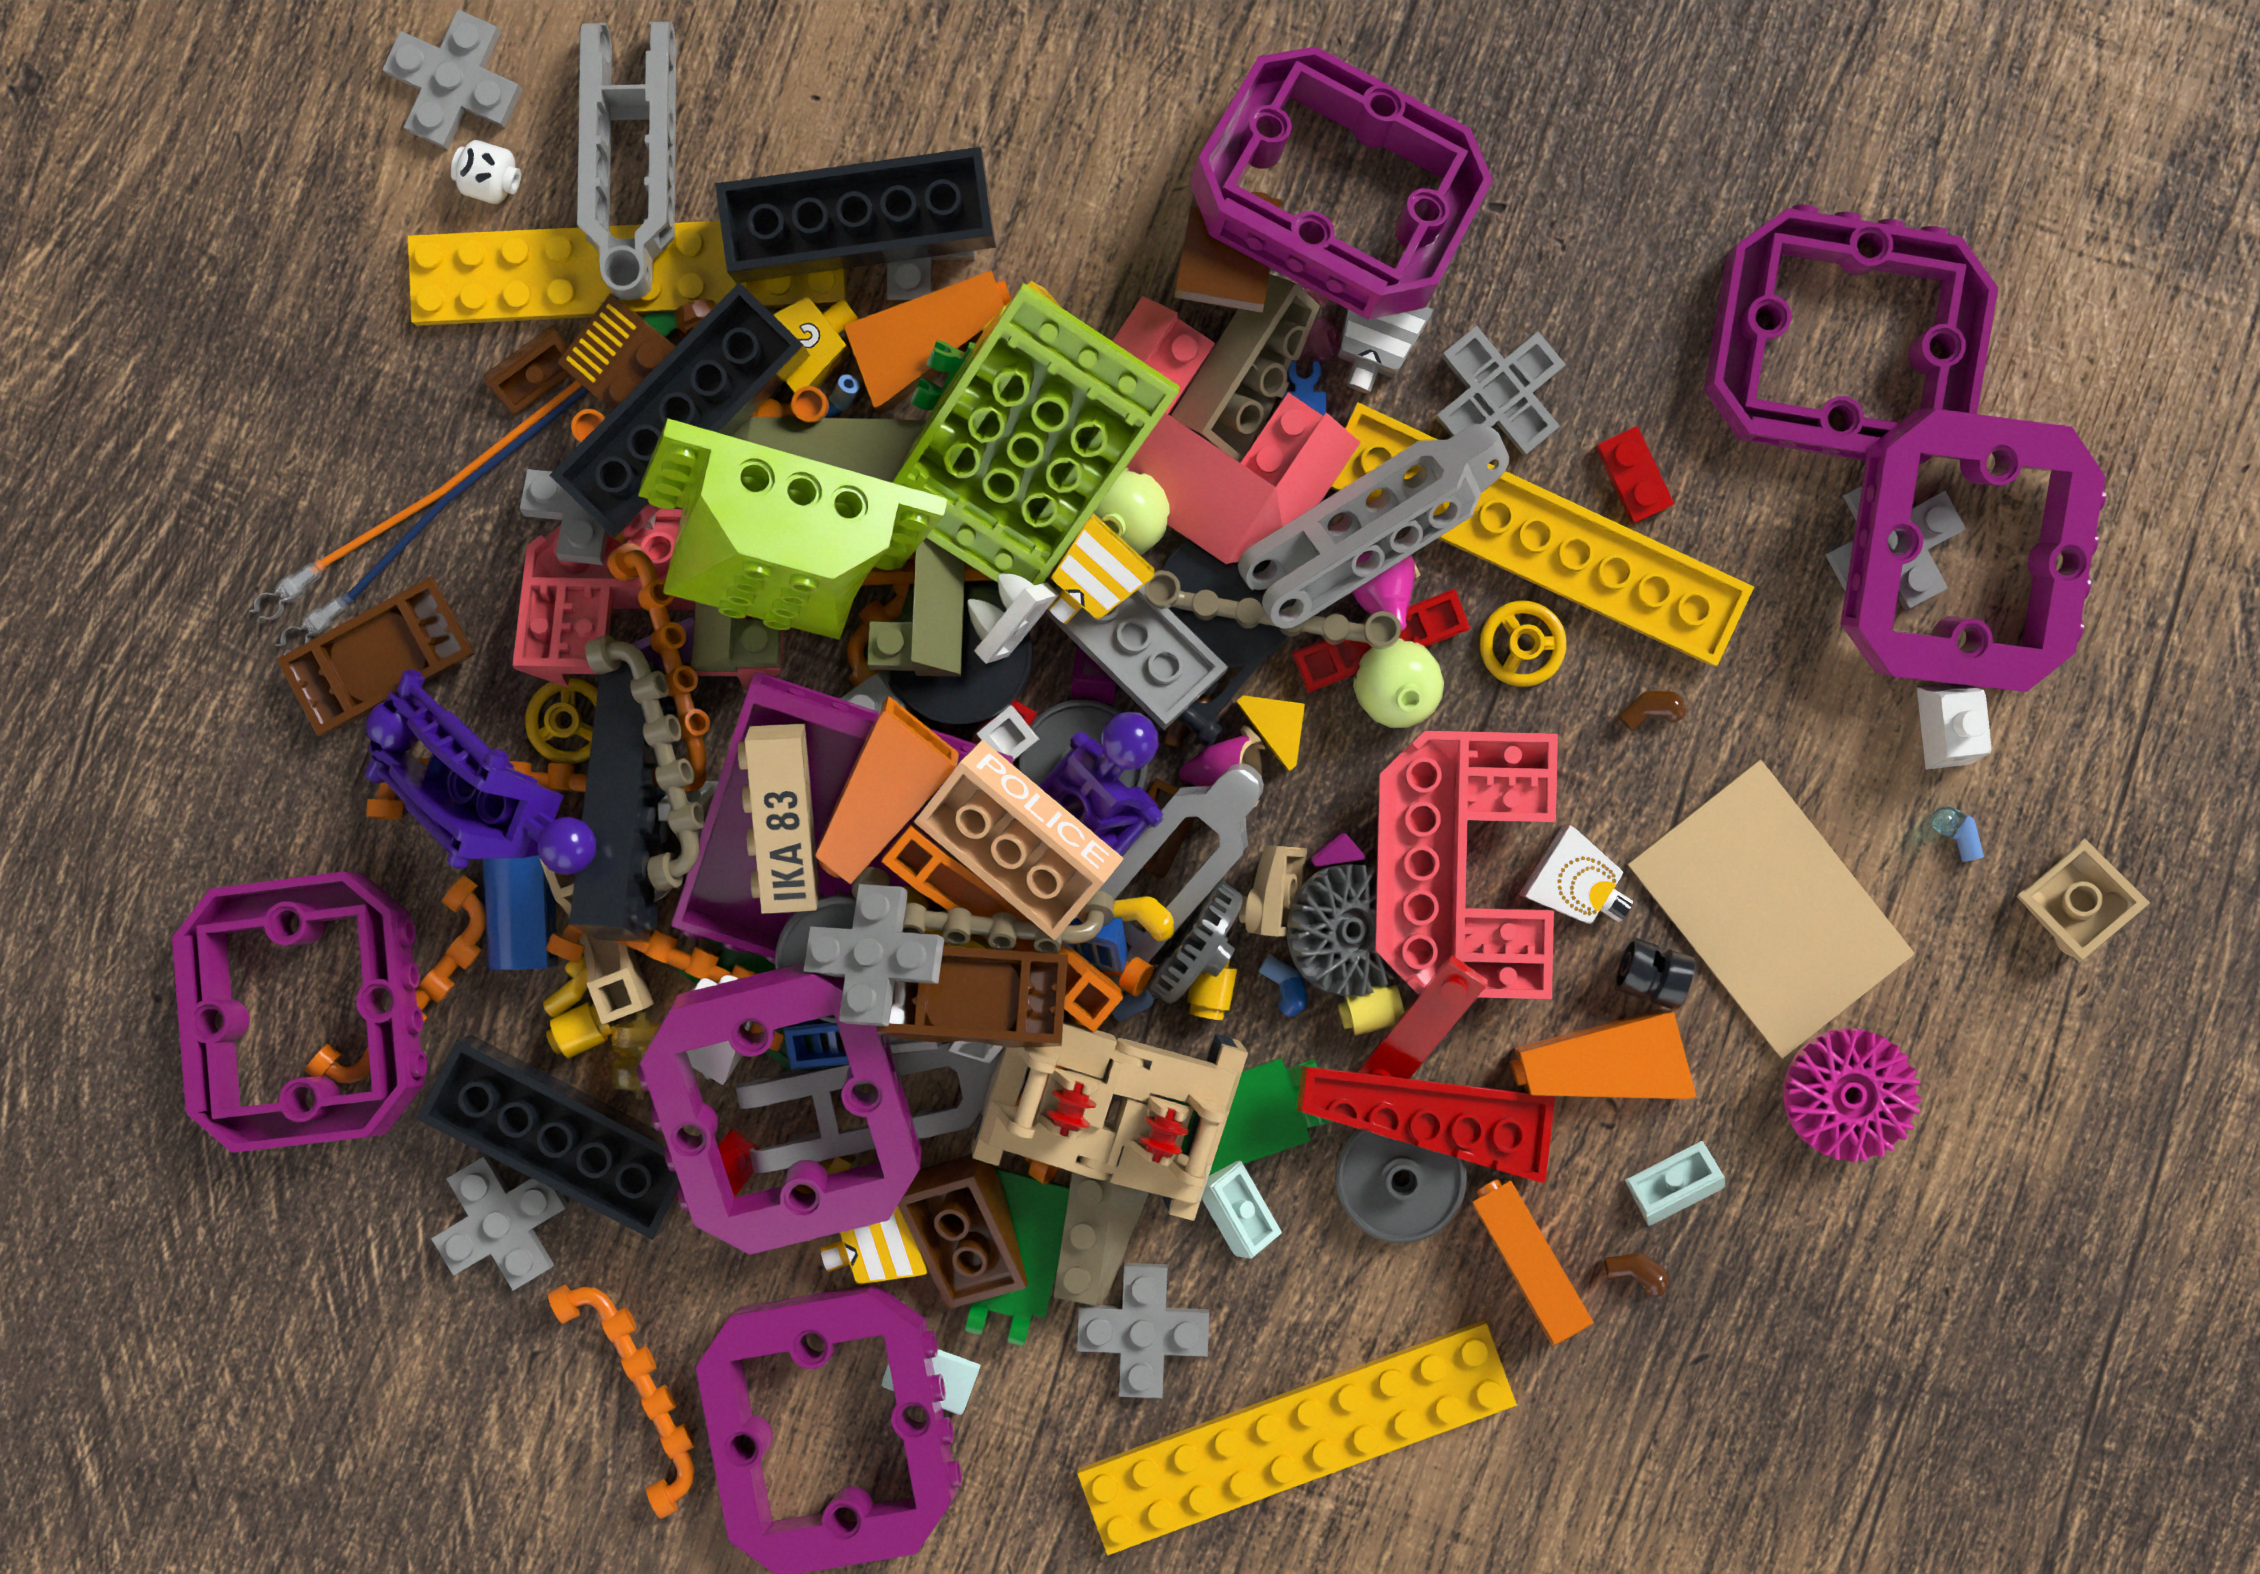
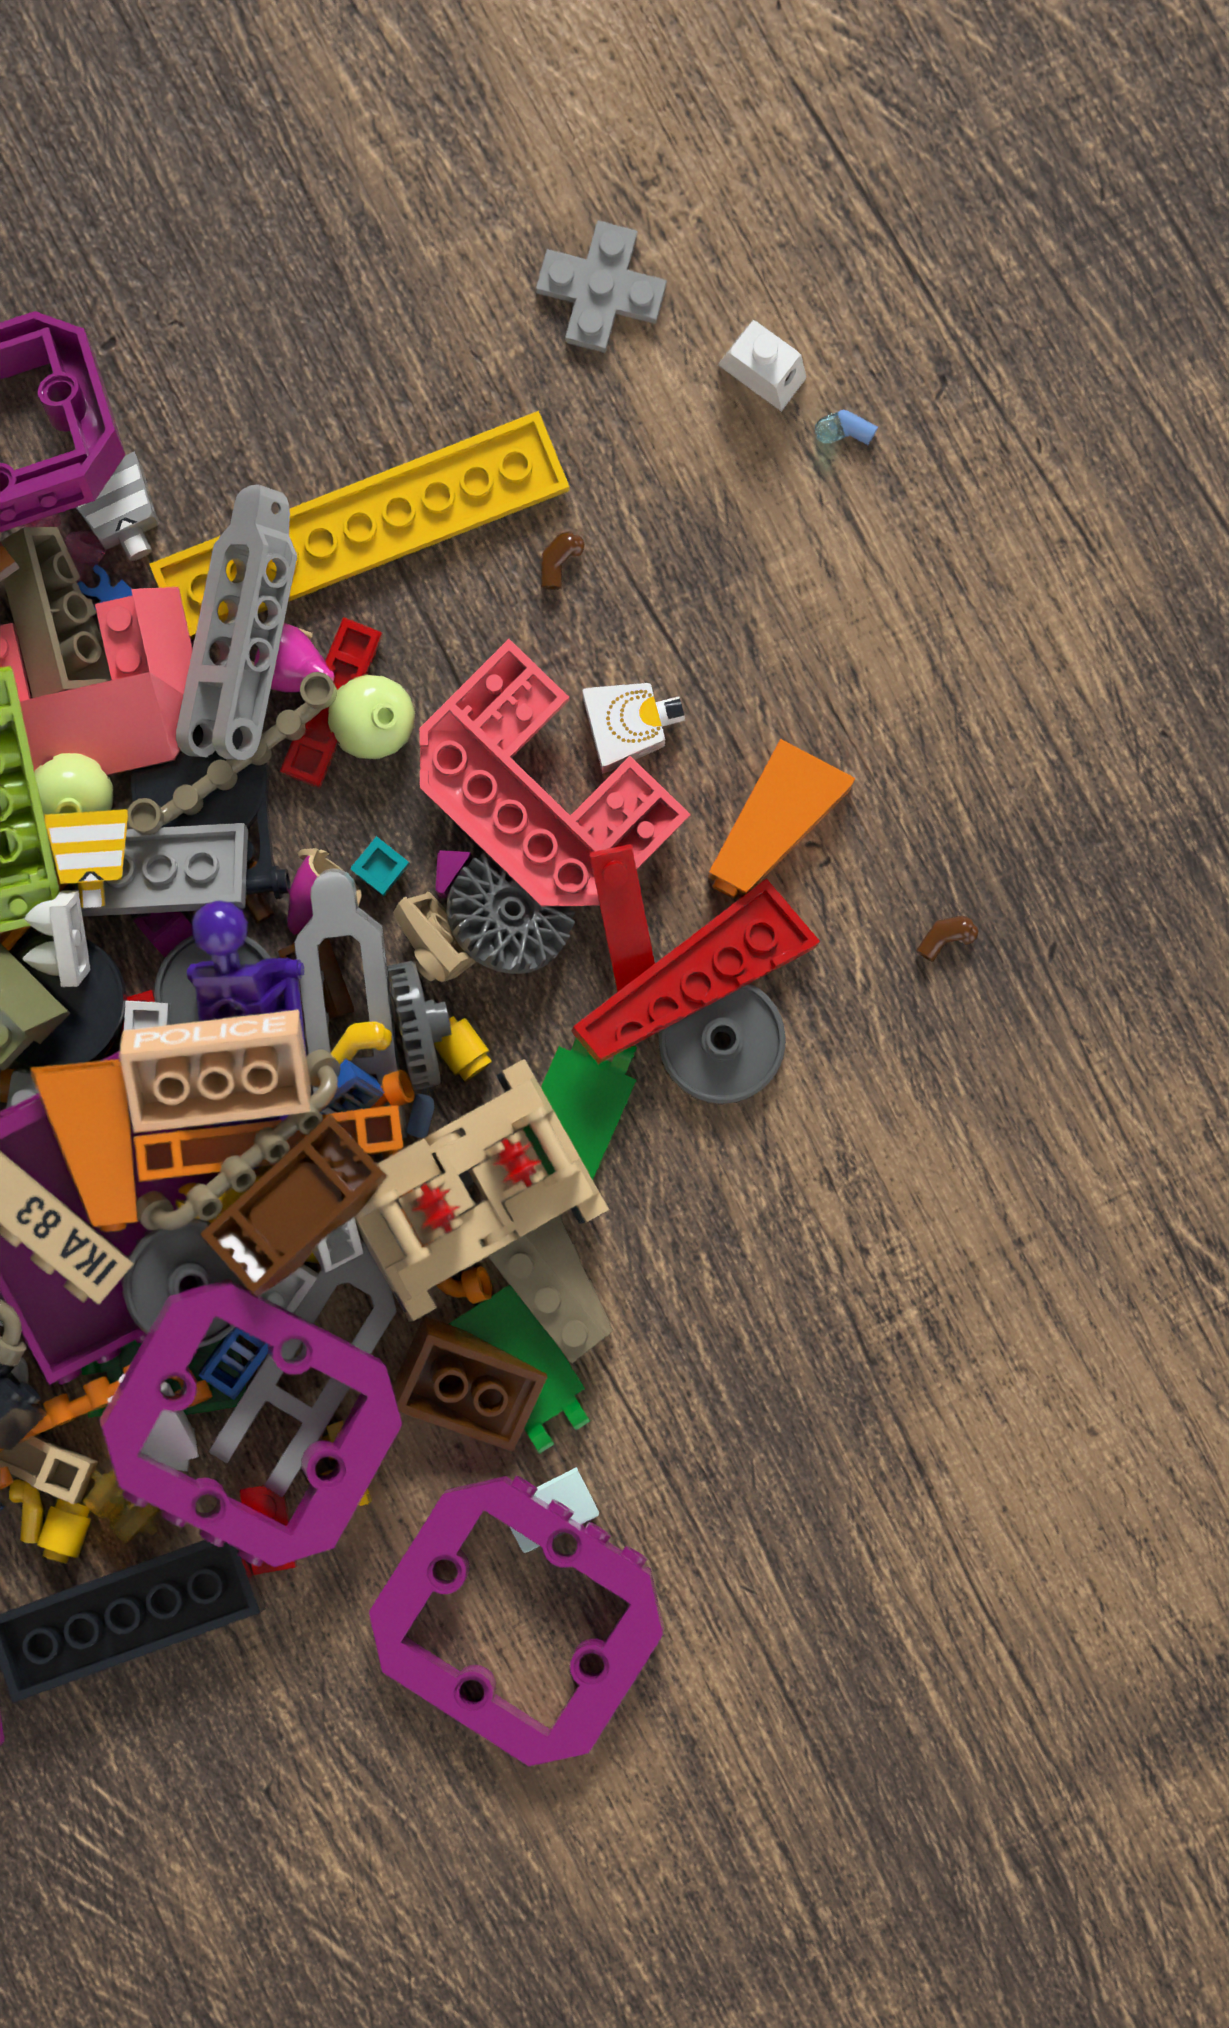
camera: 45 degrees left, 5 degrees down
(499, 1223) = (147, 1723): light grey plate -> none
(655, 1401) = (382, 1729): orange bar -> none
(874, 955) = (199, 1246): light grey plate -> none
(877, 1252) = (420, 1460): torso -> none
(1143, 1330) = (661, 1327): light grey plate -> none
(1239, 1211) = (638, 1177): light aqua slope -> none
(1277, 724) = (318, 828): yellow slope -> none
(1290, 982) = (513, 991): arm -> none
(1291, 795) = (380, 866): none -> teal plate
(1296, 1437) = (840, 1290): yellow plate -> none
(1372, 1010) = (583, 950): light yellow brick -> none
(1502, 388) = (236, 455): light grey plate -> none
(1531, 1262) = (869, 1003): orange slope -> none
(1556, 642) = (449, 583): yellow piece -> none
(1634, 475) = (384, 421): red plate -> none
(1650, 972) = (744, 728): black wheel -> none
(1676, 1183) = (910, 852): light aqua slope -> none
(1748, 287) = (400, 100): magenta panel -> none
(1770, 909) = (777, 607): tan piece -> none
(1881, 1098) = (961, 639): dark pink wheel -> none
(2055, 598) = (699, 160): magenta panel -> none
(2082, 901) = (971, 387): tan slope -> none

